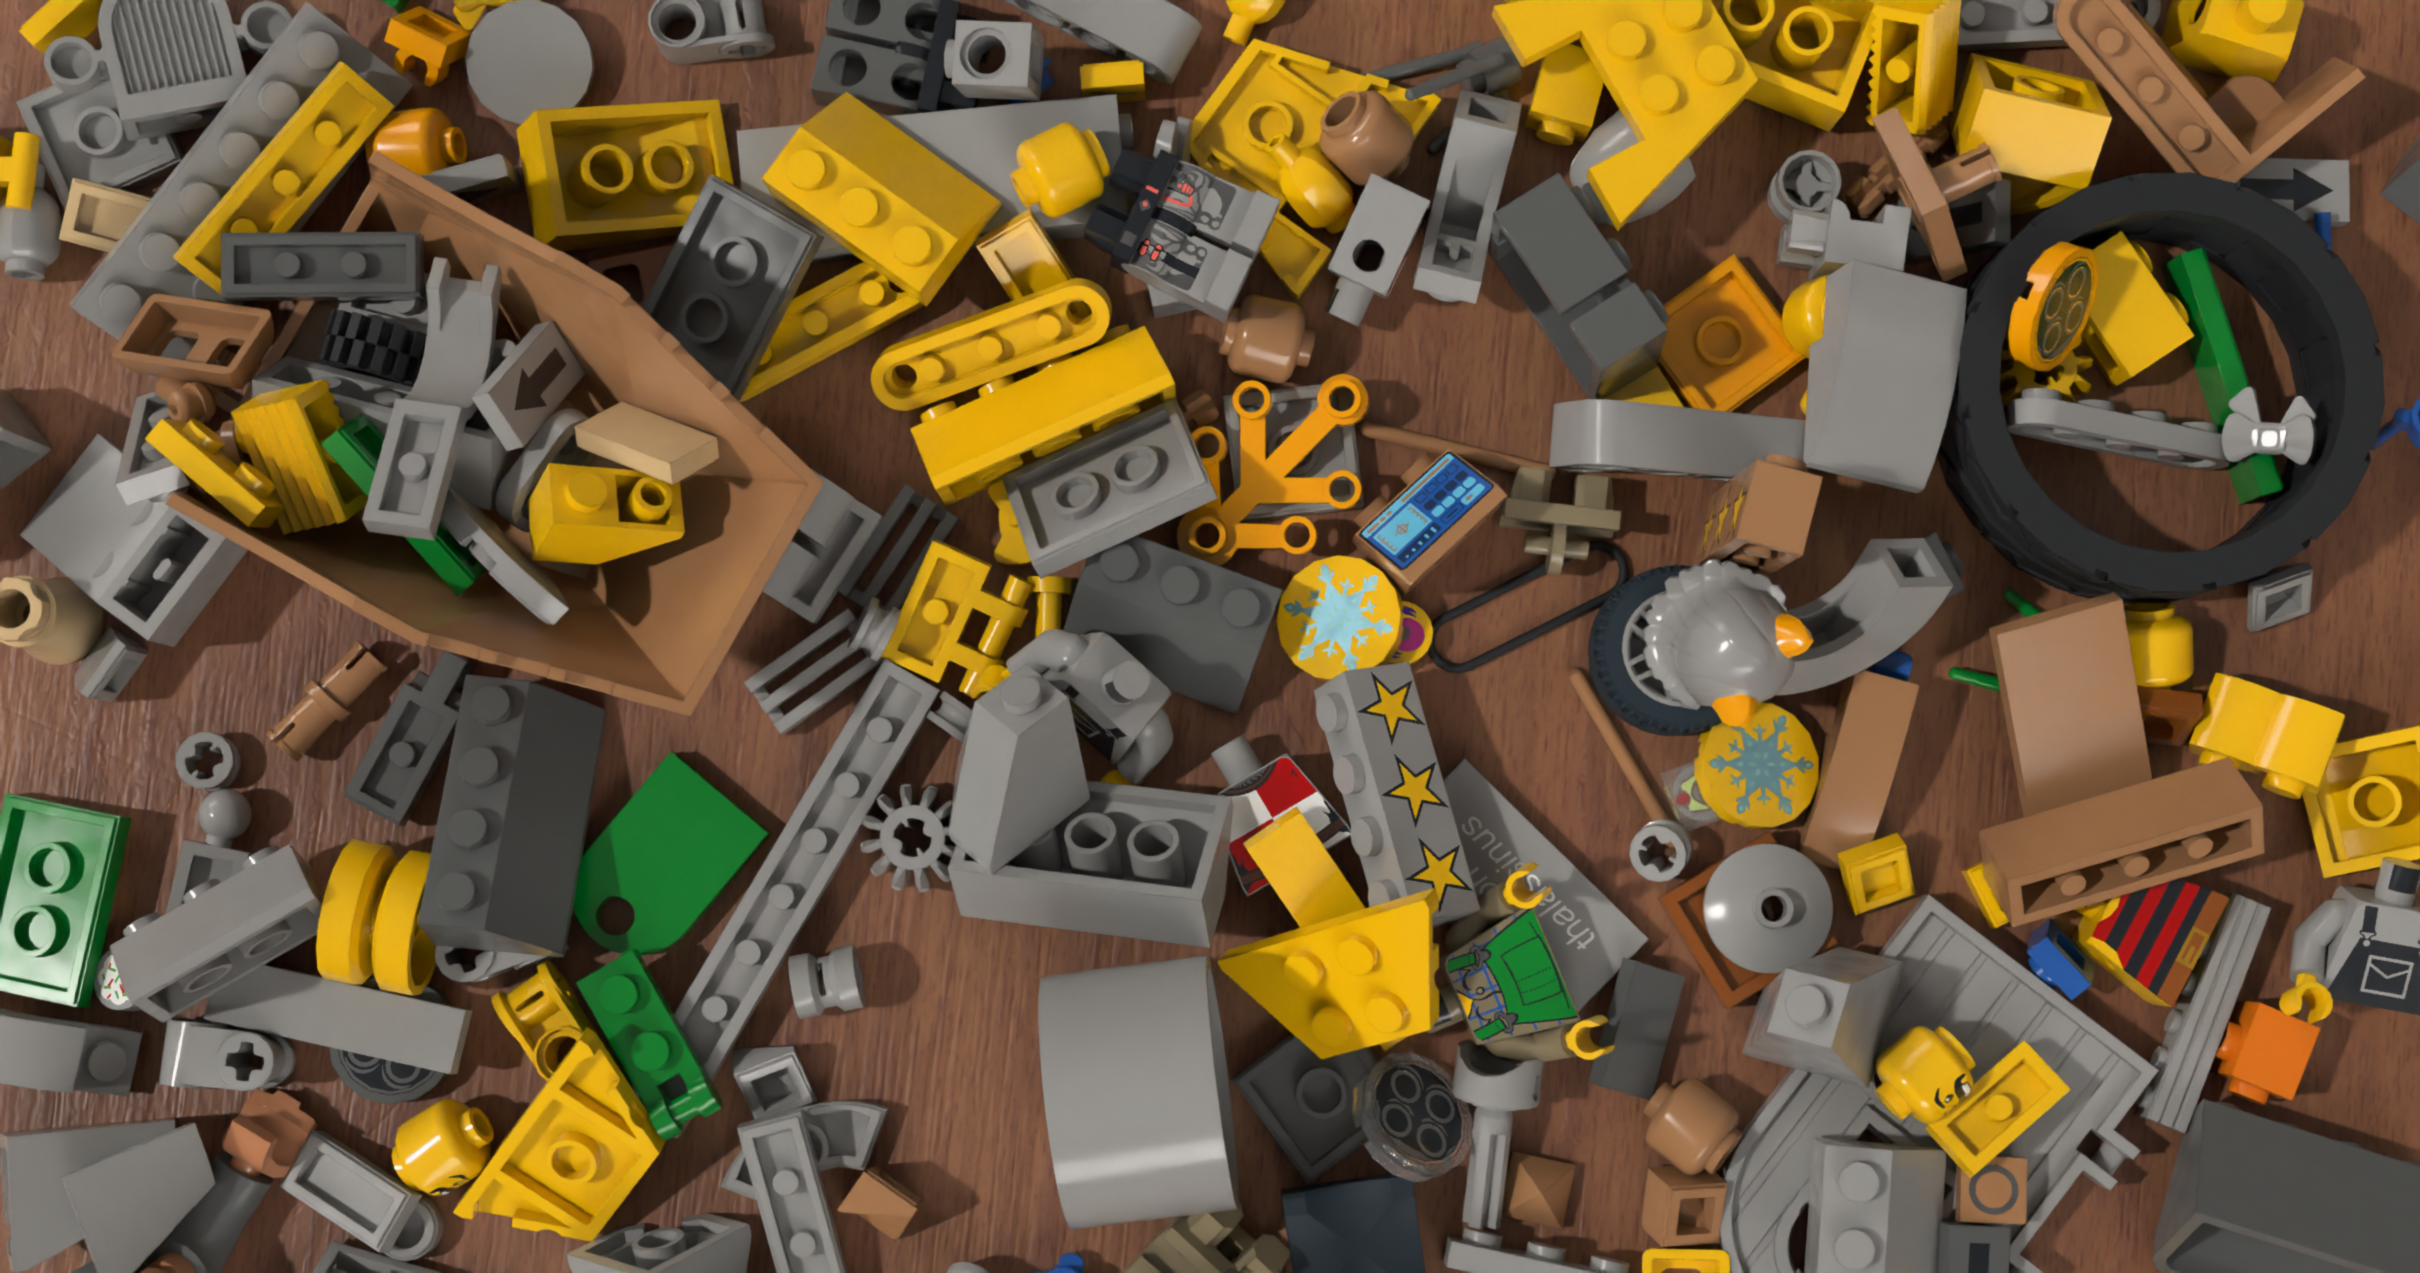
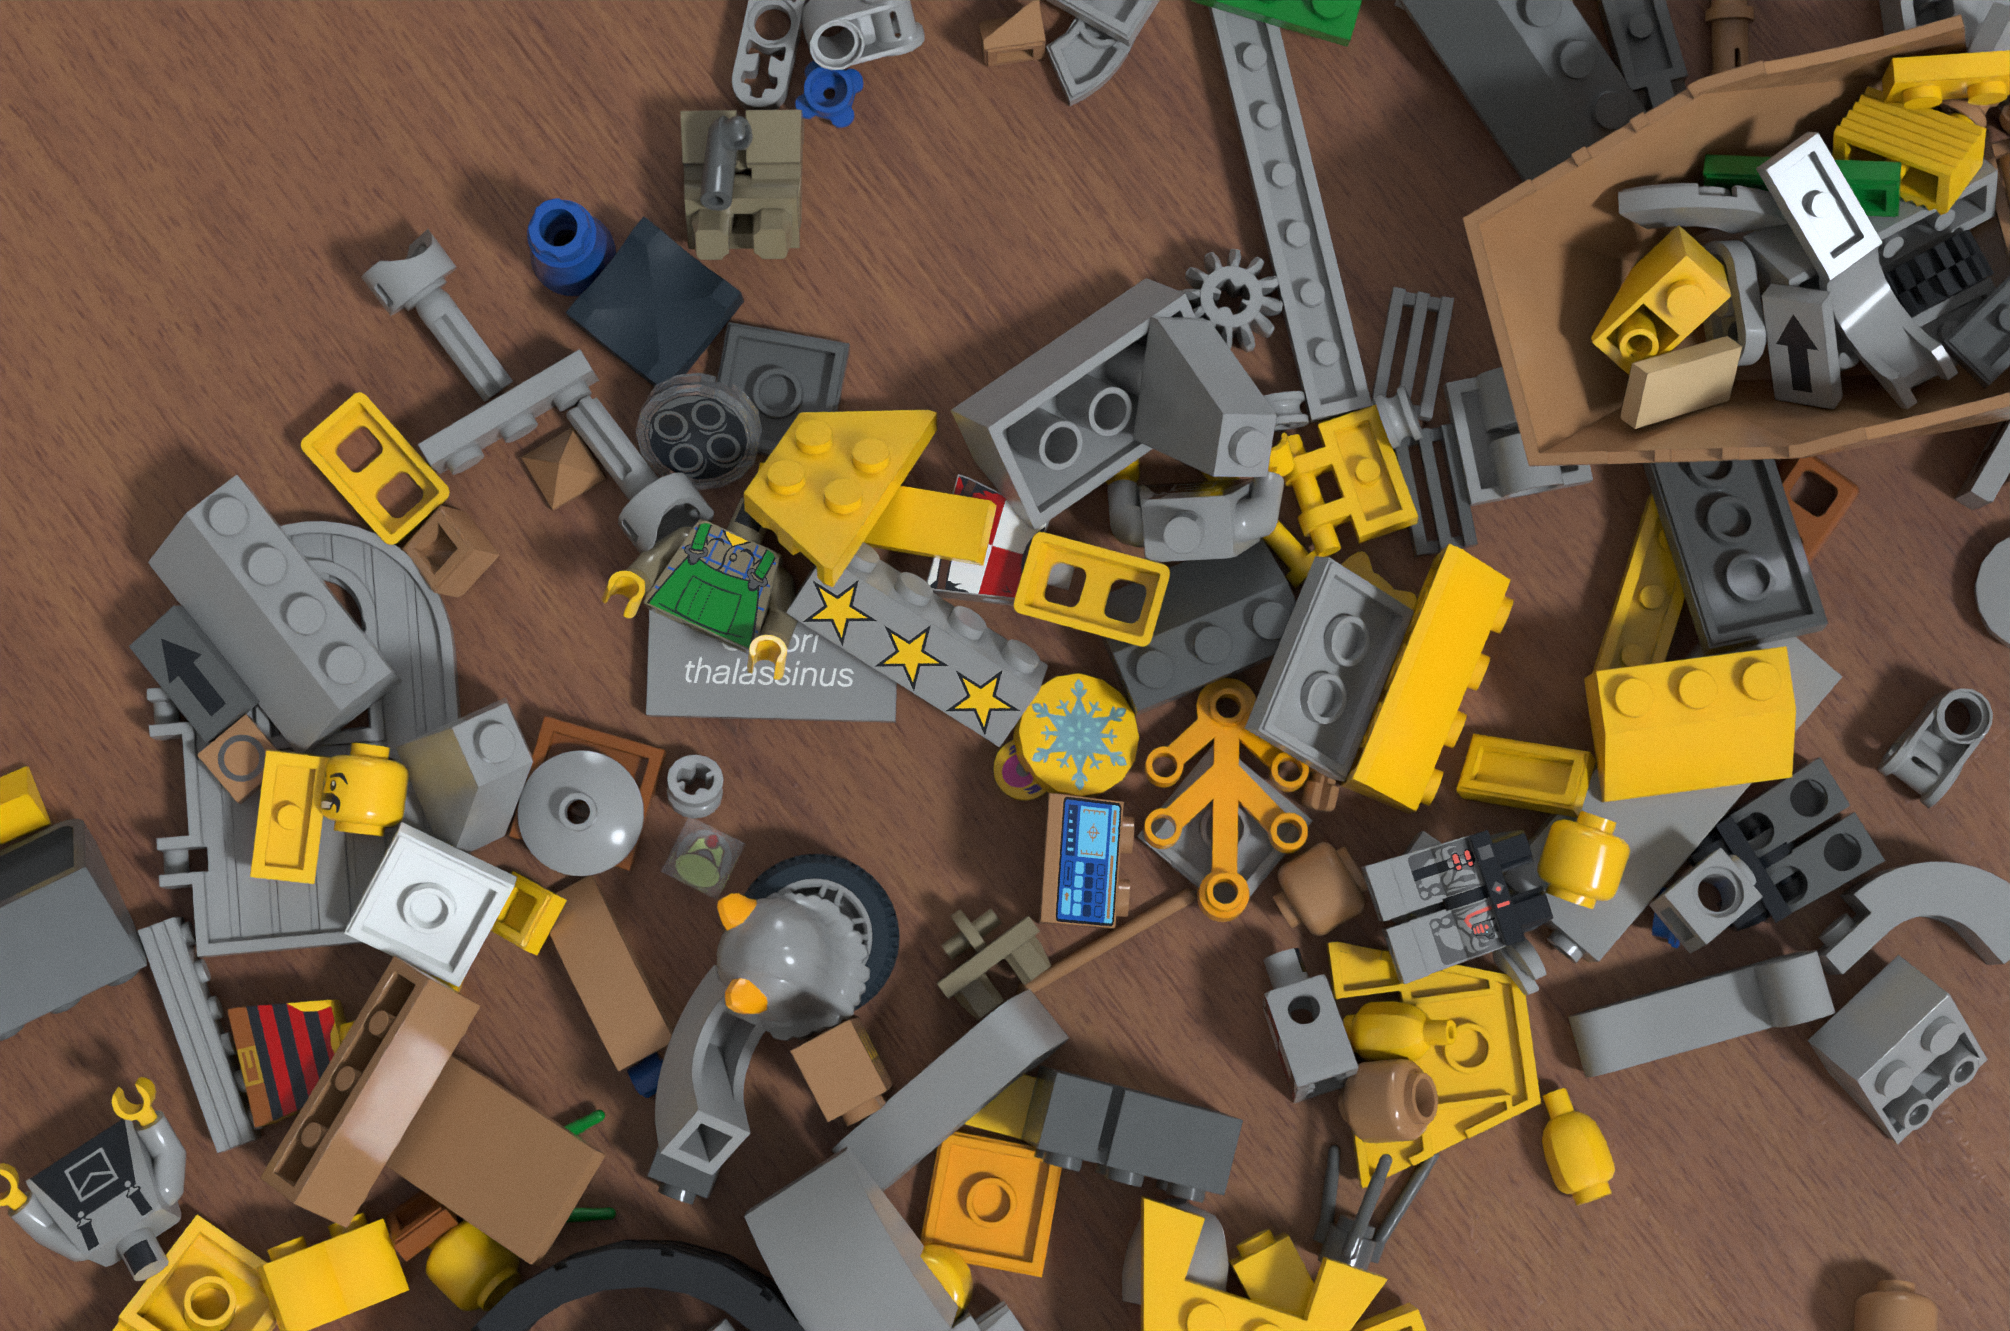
camera: 135 degrees right, 0 degrees up
(619, 170) = (1896, 575): yellow slope -> none
(667, 857) = (1390, 130): green tile -> none
(772, 1080) = (1168, 47): light grey slope -> none
(840, 976) = (1195, 147): light grey wheel -> none
(991, 344) = (1511, 696): yellow plate -> none
(1111, 78) = (1611, 973): yellow tile -> none
(1137, 1092) = (907, 261): light grey wheel -> none
(1250, 695) = (1101, 570): none -> yellow piece
(1466, 197) = (1273, 1126): light grey arch -> none
(1533, 633) = (928, 863): black piece -> none
(1617, 746) = (795, 835): medium nougat axle -> none
(1638, 1027) = (596, 643): dark grey tile -> none
(1692, 1126) = (494, 610): medium nougat head -> none
(1759, 771) = (673, 911): yellow tile -> none
(1948, 942) = (430, 904): none -> white tile
(2059, 960) = (337, 973): blue plate -> none
(2264, 1052) = (131, 1041): orange brick -> none

